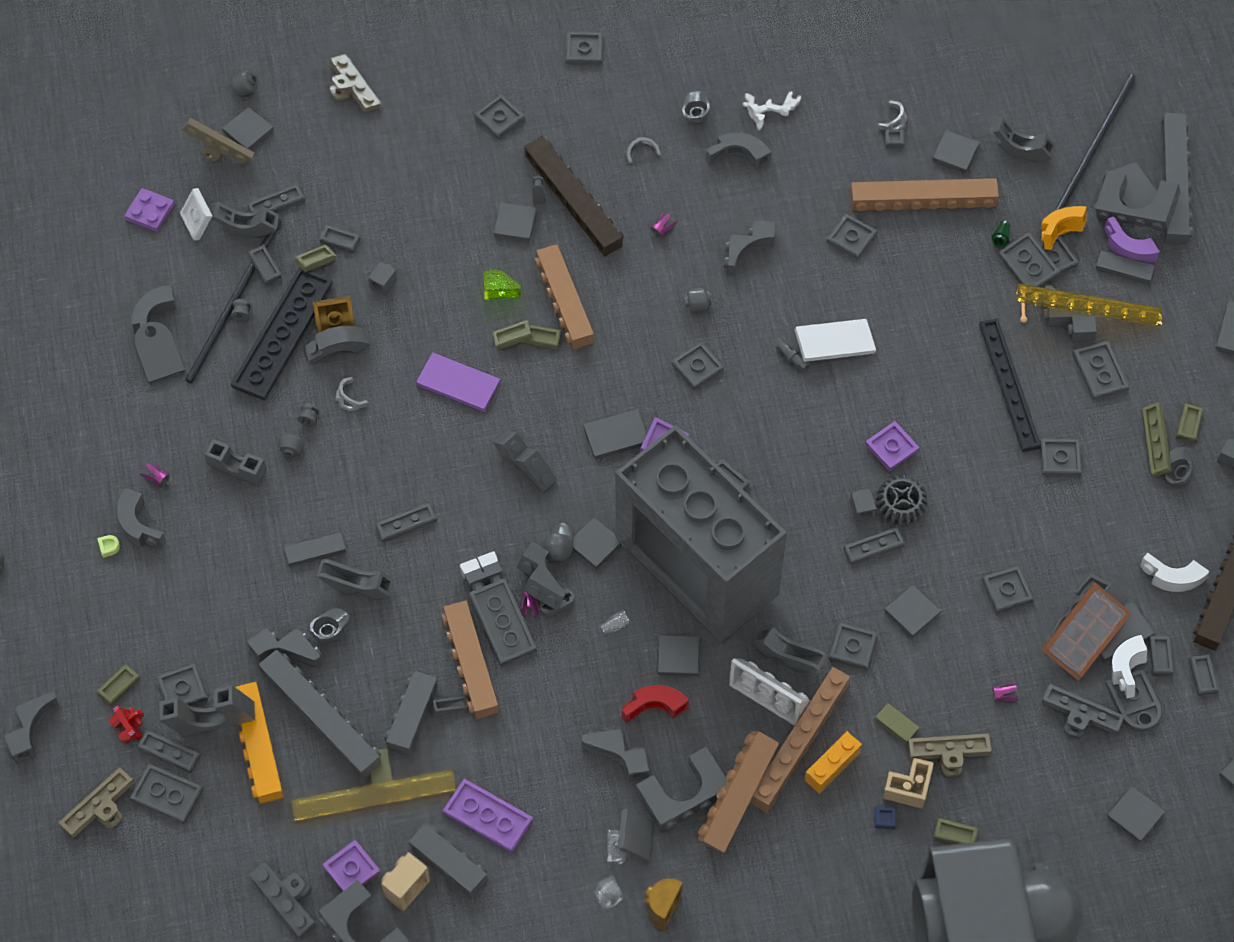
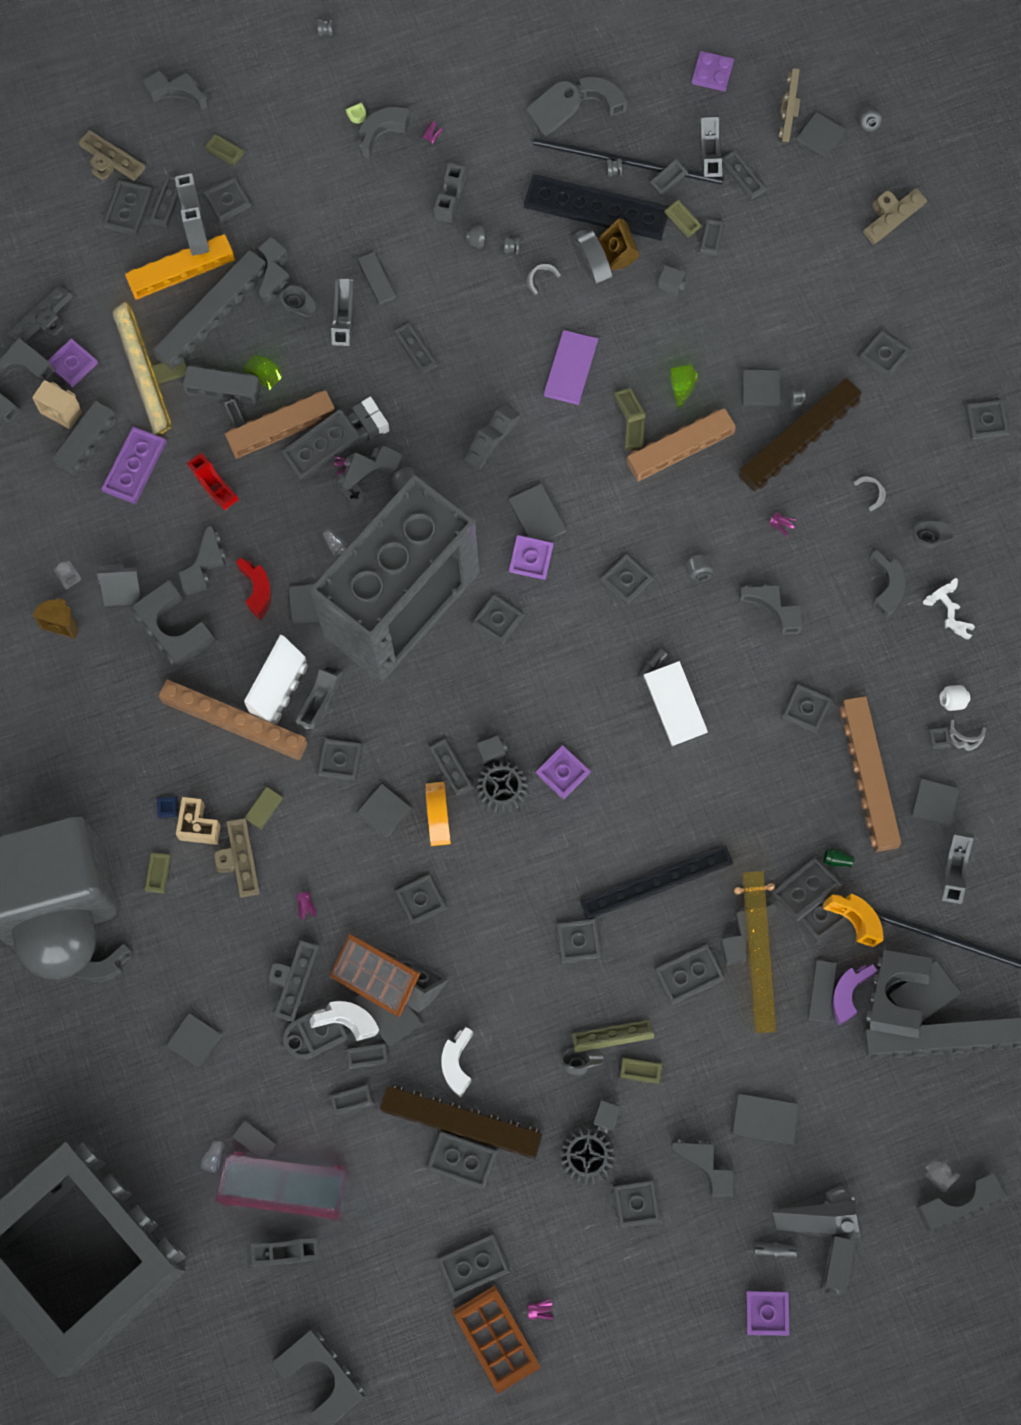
camera: 85 degrees right, 10 degrees up
(130, 720) = (187, 162): red hips -> none
(196, 214) = (708, 106): white tile -> none
(400, 670) = (265, 369): none -> clear neon green slope
(525, 735) = (211, 482): none -> red arch
(737, 791) = (167, 666): medium nougat brick -> none
(833, 762) = (213, 752): light orange brick -> none
(859, 117) = (954, 697): none -> white head
(922, 556) = (437, 813): none -> light orange arch

